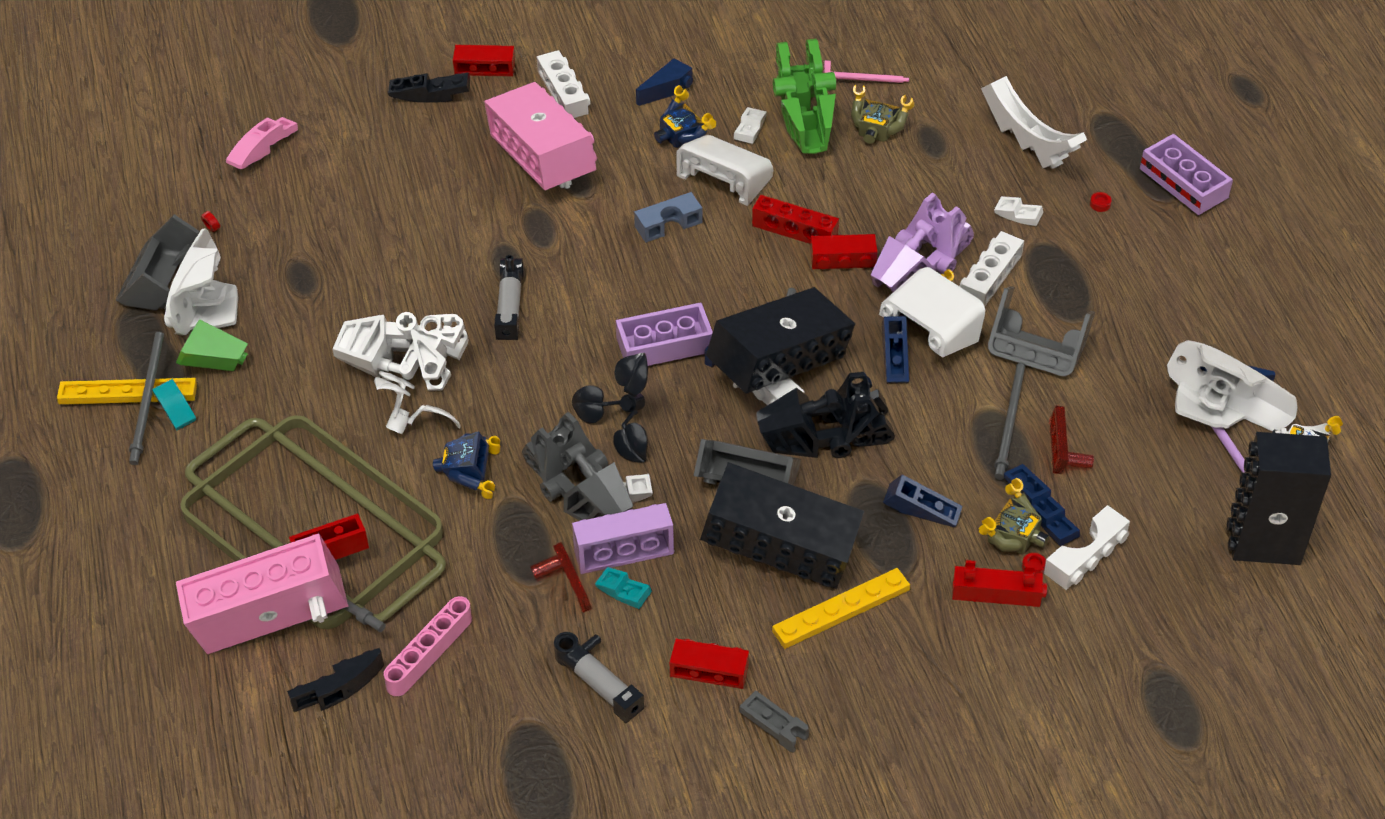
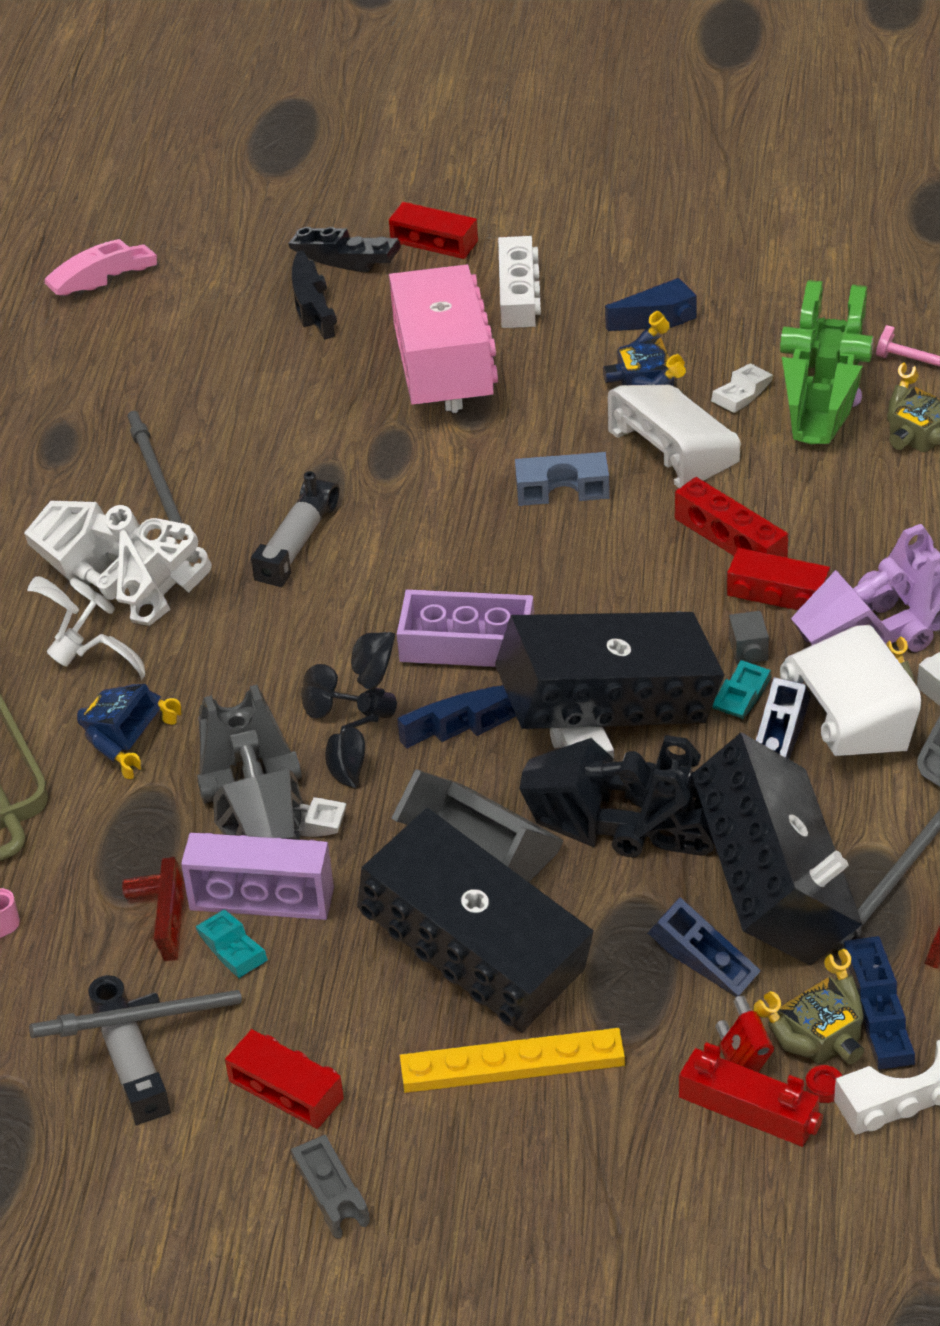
camera: 25 degrees right, 5 degrees down
(360, 258) = (141, 436): none -> dark grey bar
(424, 132) = (309, 296): none -> black slope
(563, 671) = (69, 1024): none -> dark grey bar
(696, 390) = (449, 717): none -> dark blue slope
(844, 293) = (748, 637): none -> dark grey brick
(860, 330) = (742, 690): none -> teal slope
(944, 427) = (776, 850): none -> black piece
(981, 550) = (746, 1040): none -> red piece

